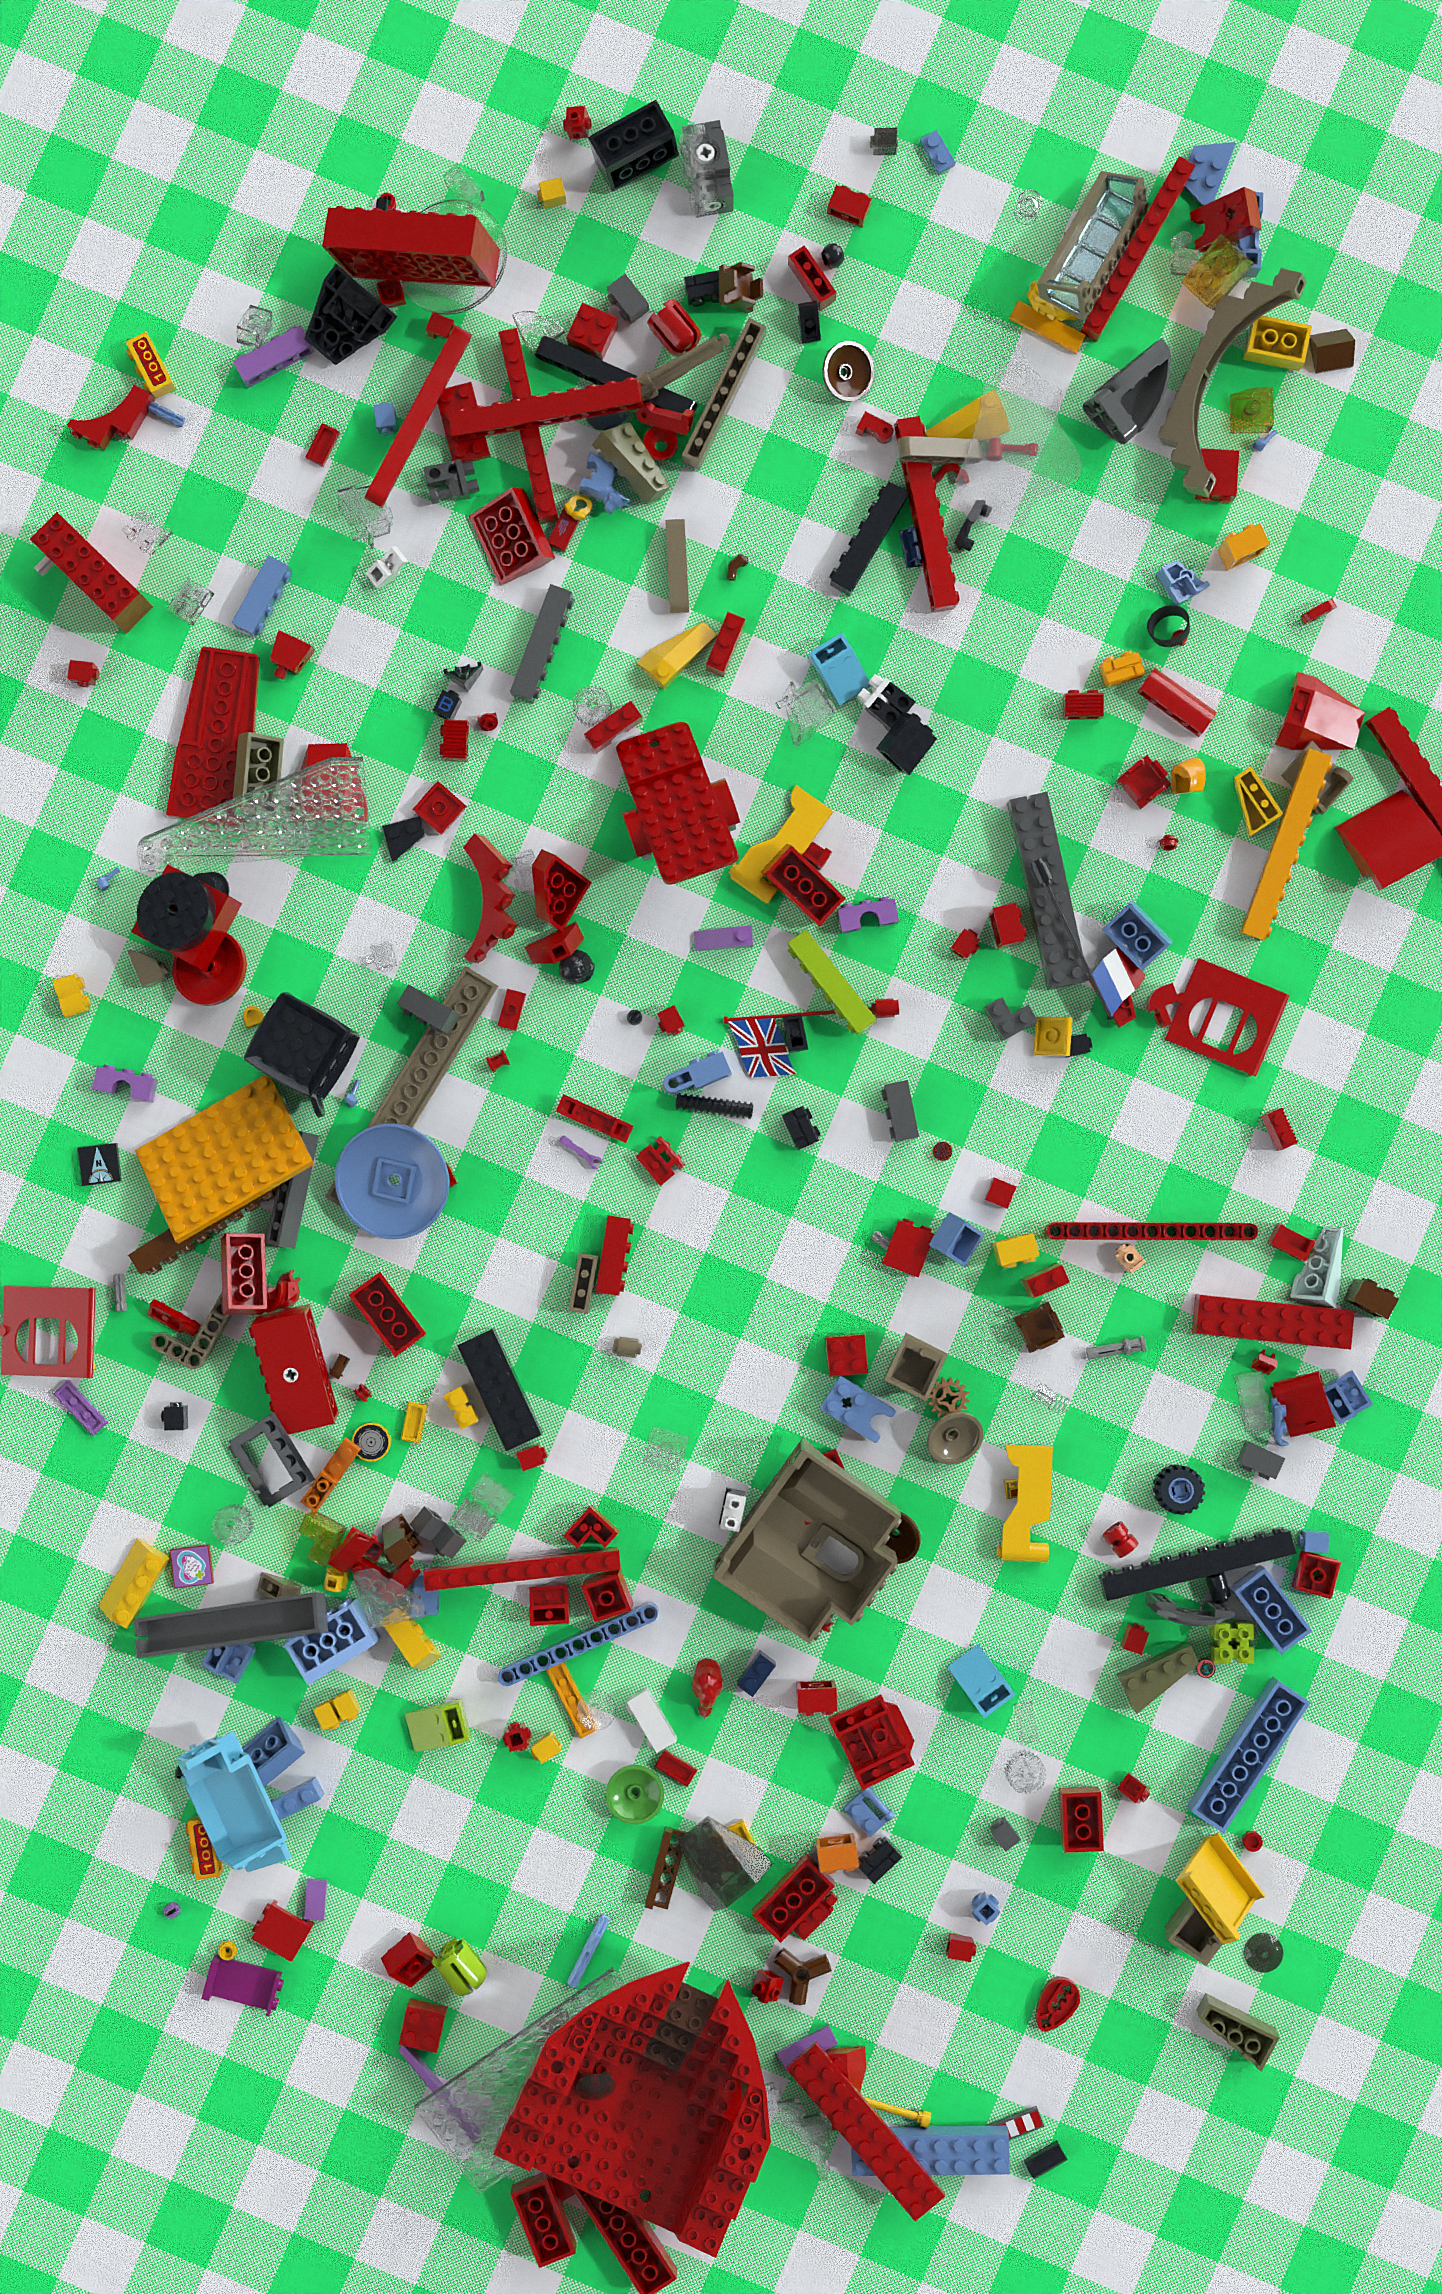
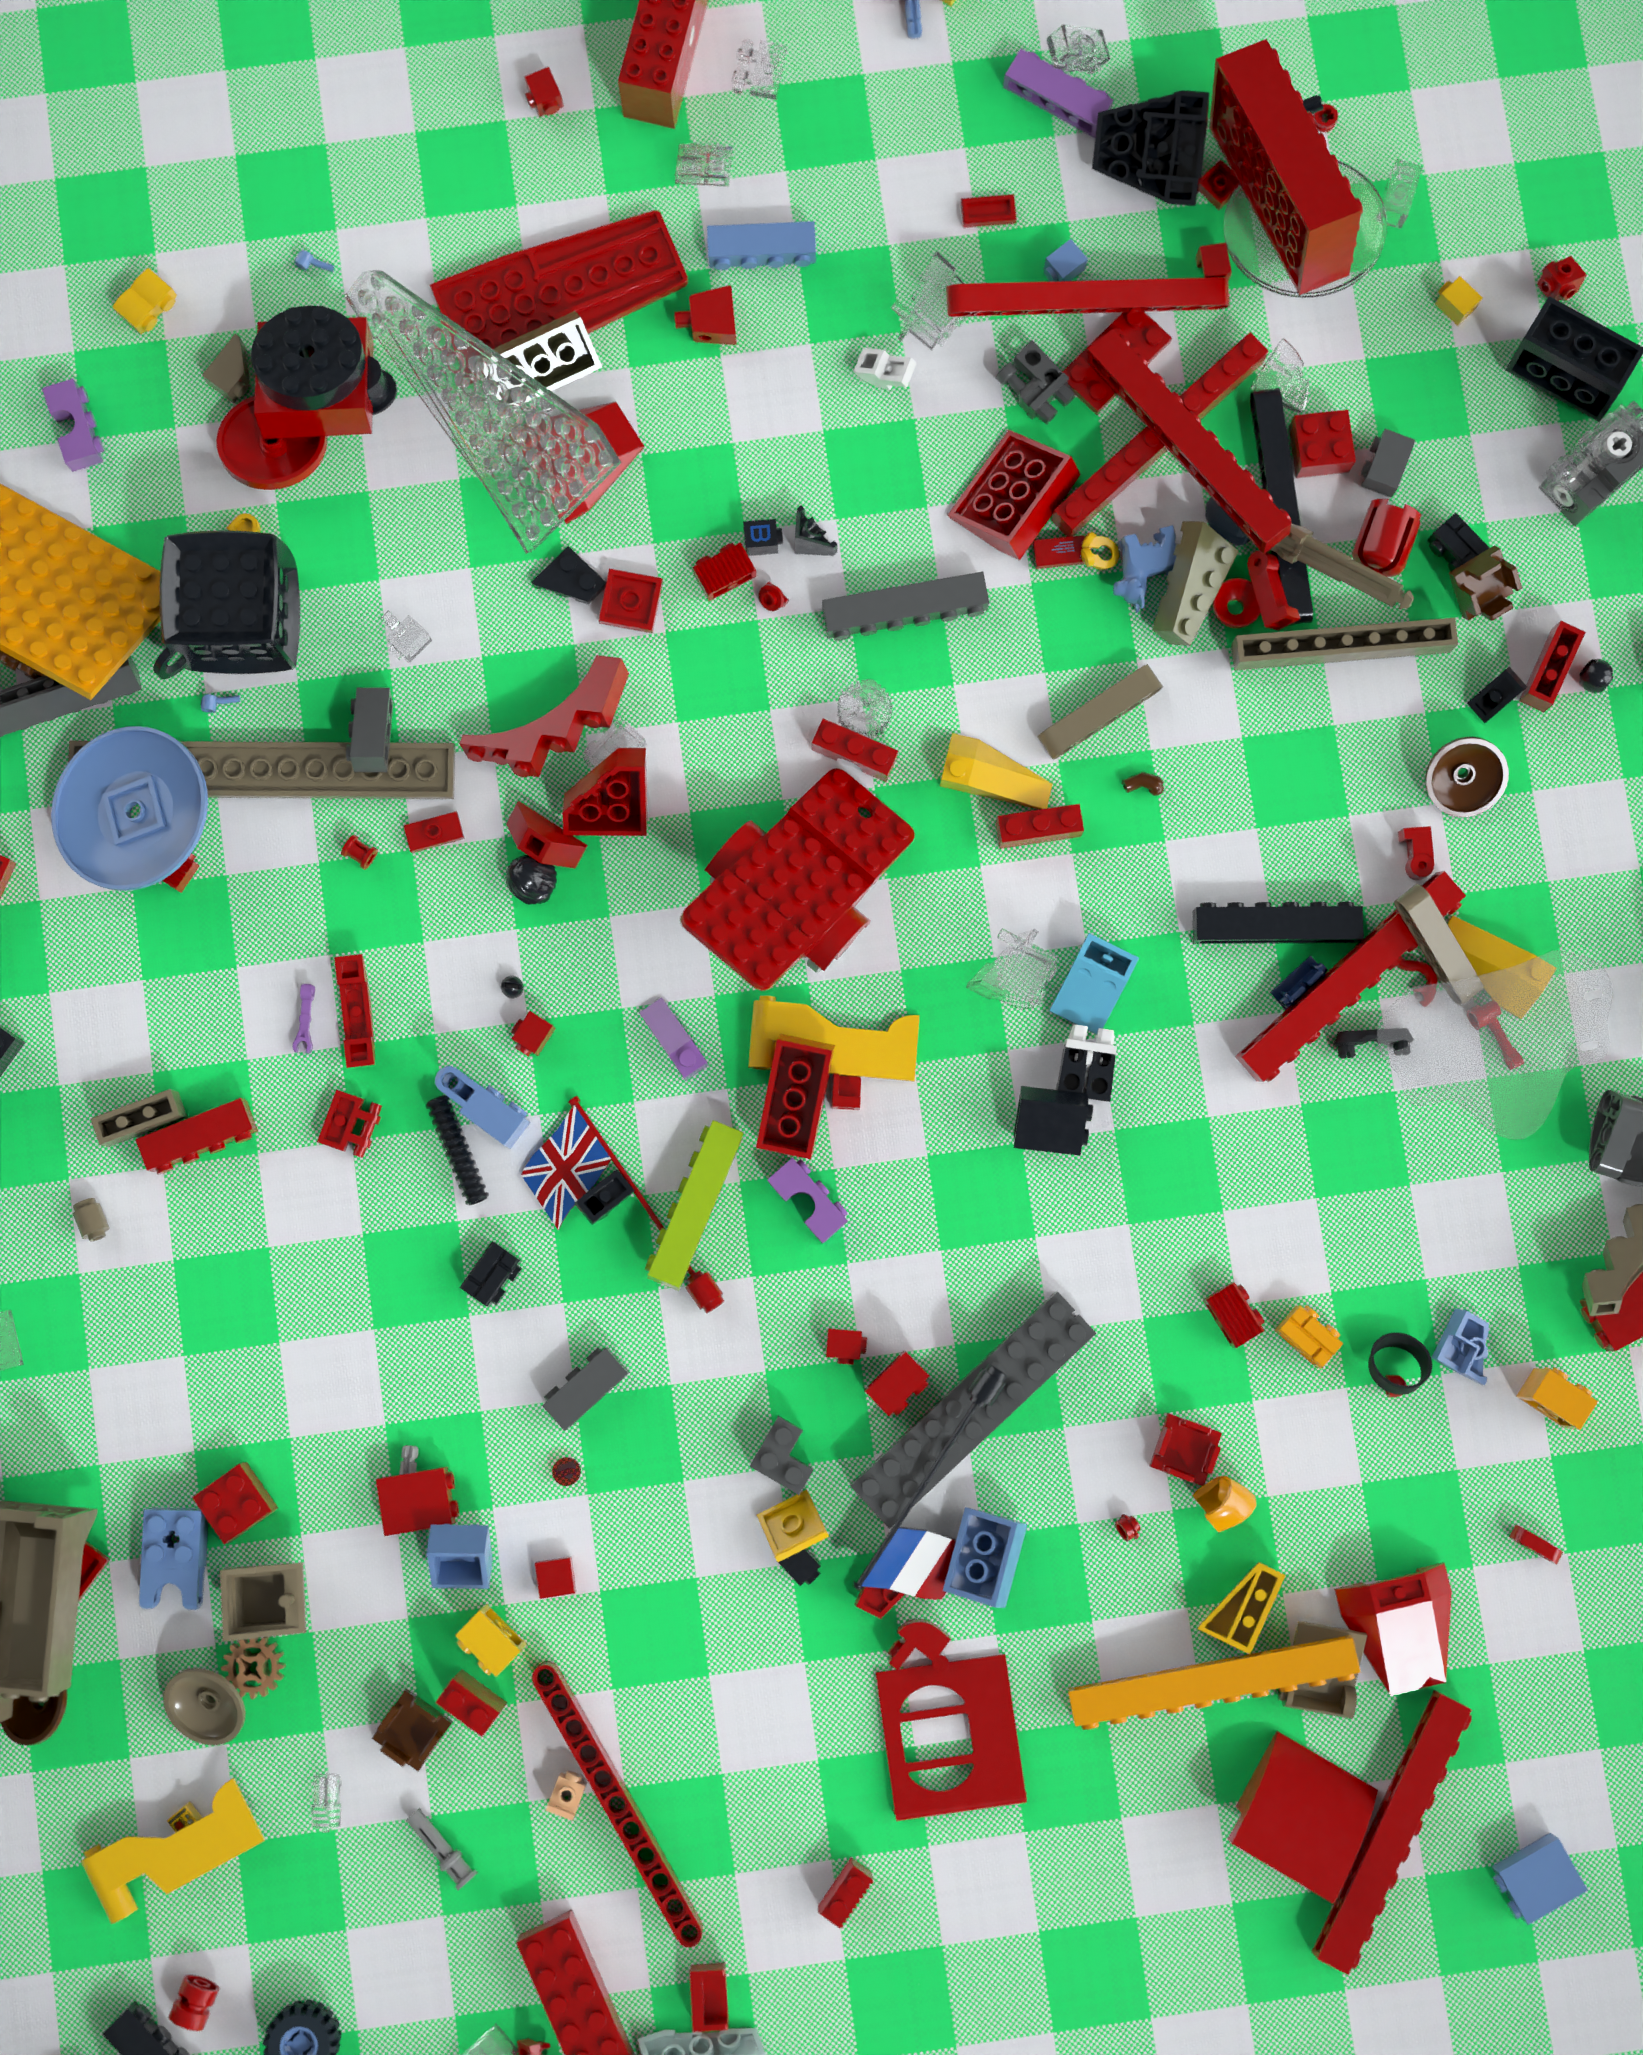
camera: 55 degrees right, 5 degrees down
(1177, 702) = (1311, 1432): red brick -> none

